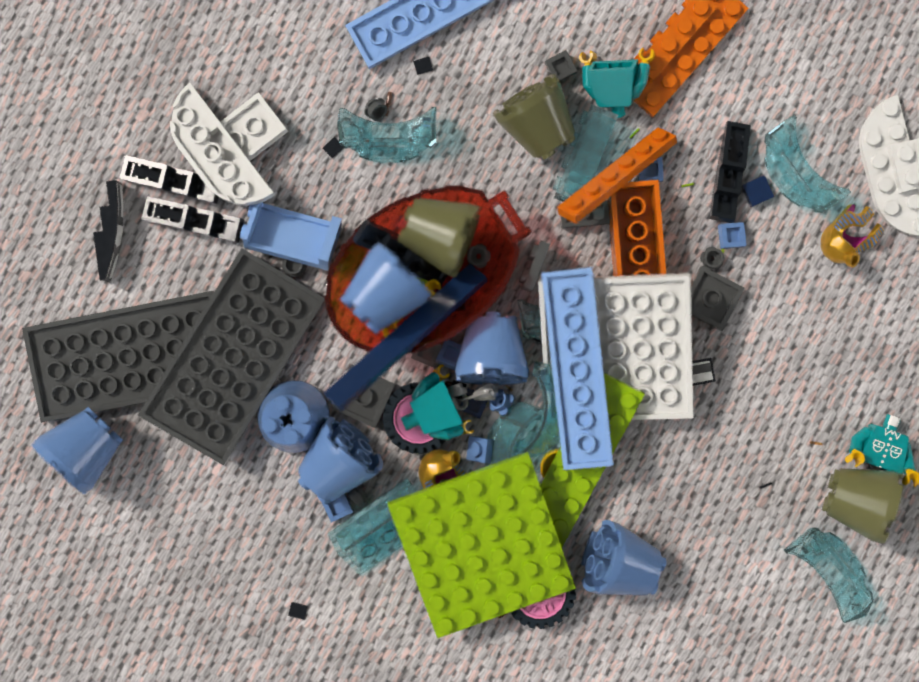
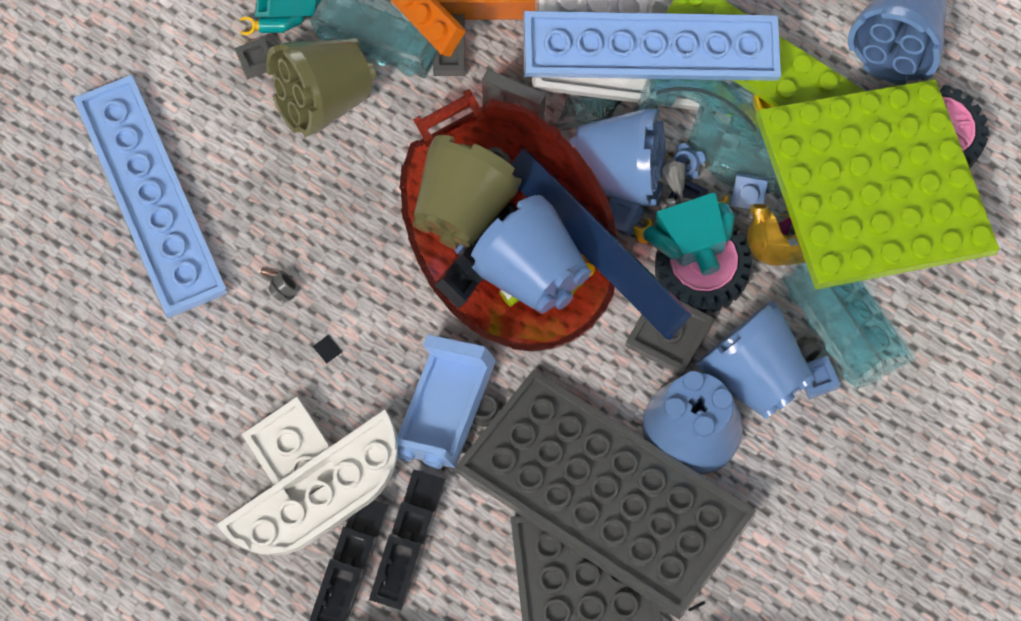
camera: 85 degrees left, 20 degrees down
(297, 610) = (962, 445): black window -> none
(387, 140) = (327, 268): clear light blue windscreen -> none
(423, 65) = (230, 227): black window -> none

